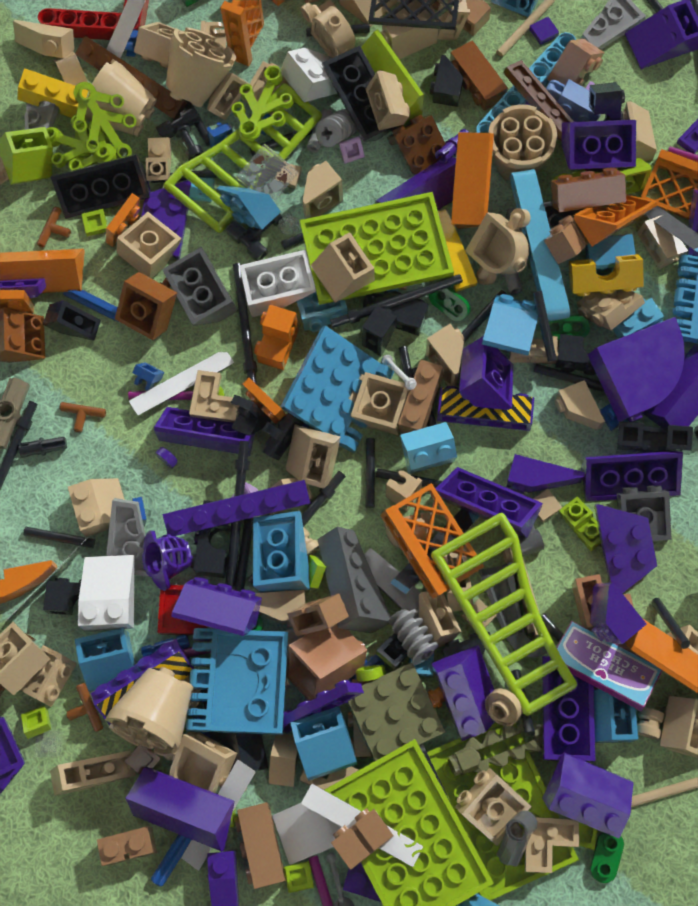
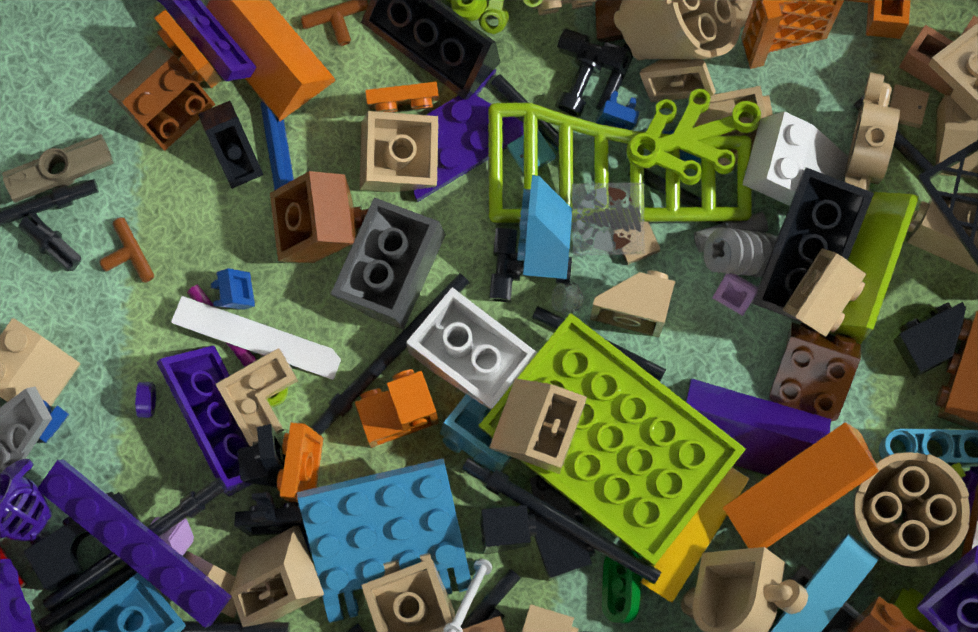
camera: 50 degrees right, 5 degrees up
(94, 222) = (383, 61): lime tile -> none
(159, 159) = (526, 70): tan slope -> none
(448, 149) = (834, 417): dark purple pin -> none

